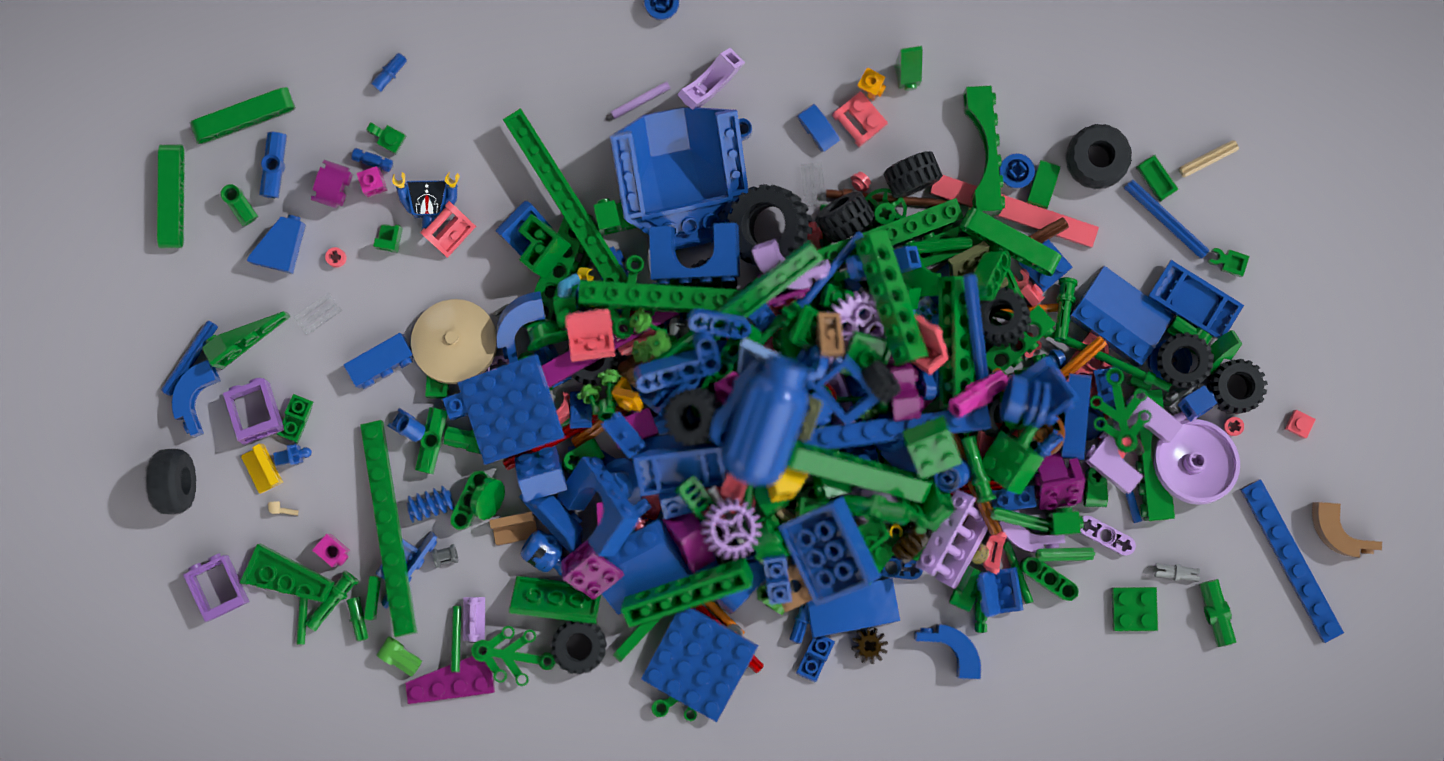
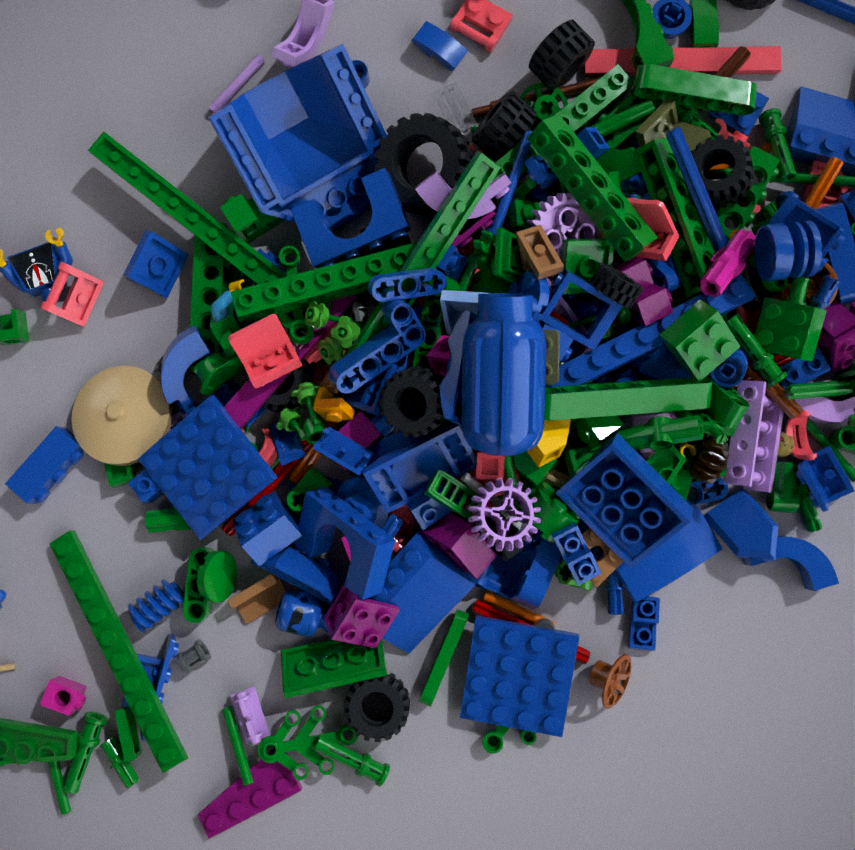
camera: 10 degrees left, 0 degrees up
(395, 654) = (175, 786): bright green piece -> none
(407, 426) = (100, 526): blue piece -> none
(434, 426) = (136, 550): green piece -> none
(546, 246) = (182, 276): green brick -> none
(553, 686) = (364, 763): none -> green pin
(687, 592) = (479, 604): green brick -> none
(770, 689) = (608, 678): none -> dark orange wheel
(860, 181) = (505, 85): coral plate -> none
(868, 653) = (692, 596): dark brown gear -> none
(923, 608) = (744, 527): none -> blue tile
(991, 273) = (692, 121): green beam -> none

